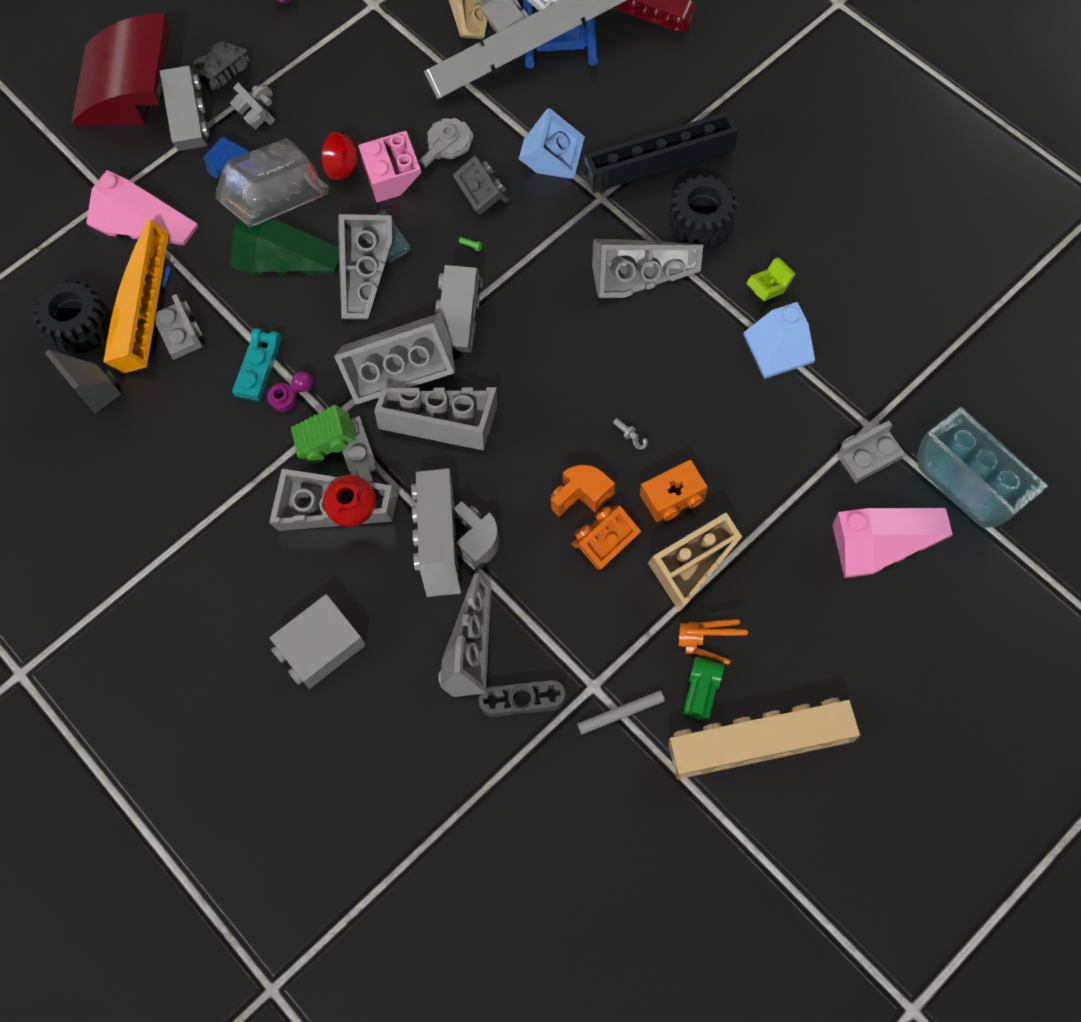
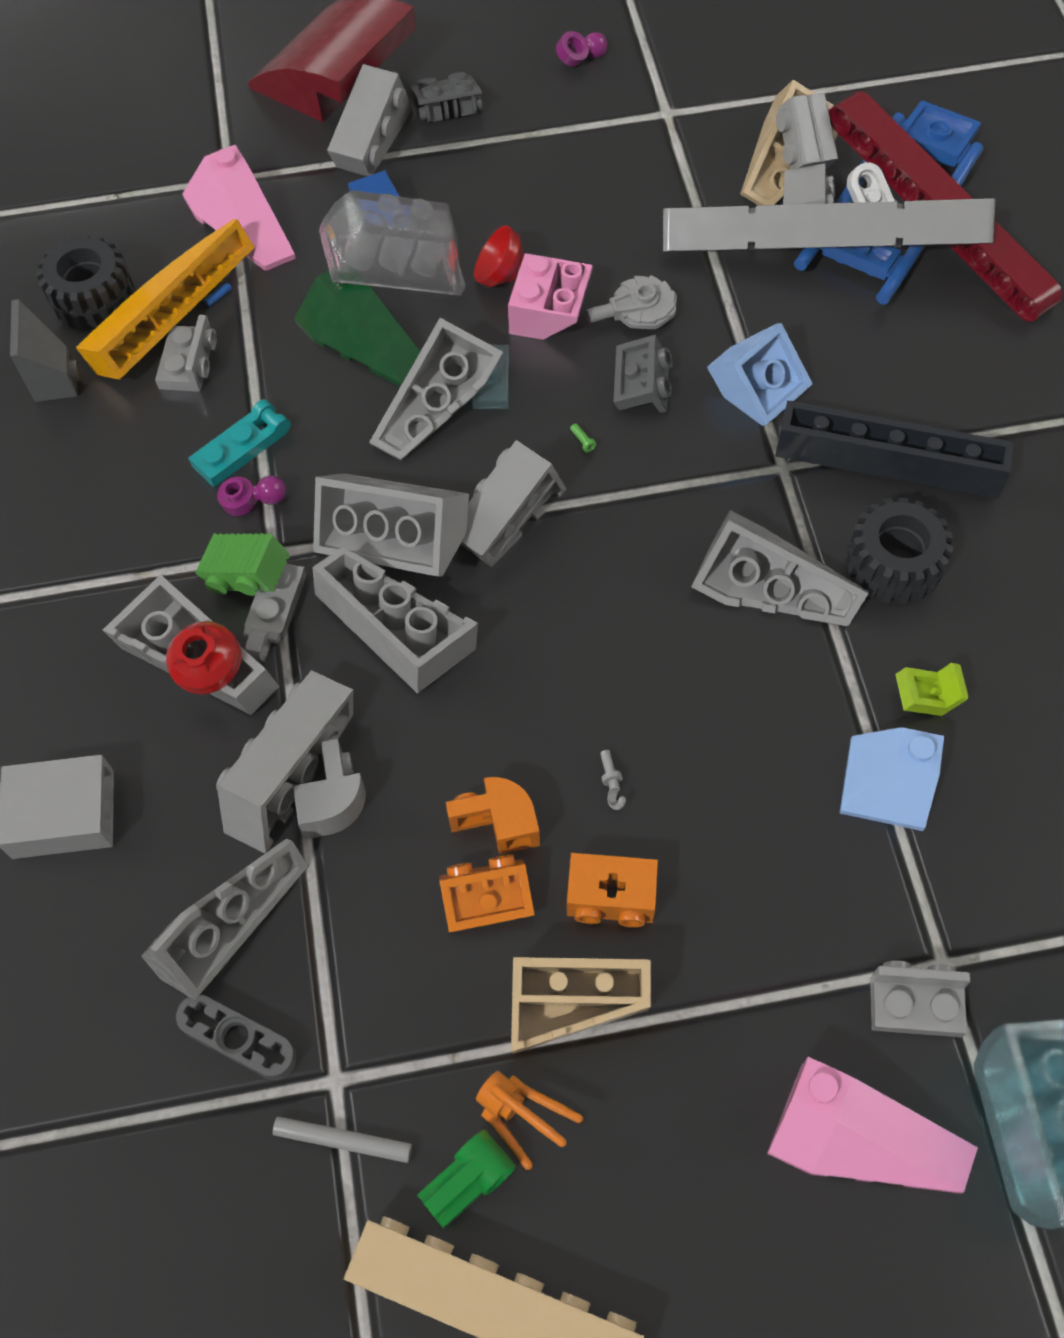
camera: 30 degrees right, 5 degrees down
(260, 97) = (448, 155): light grey hips -> none

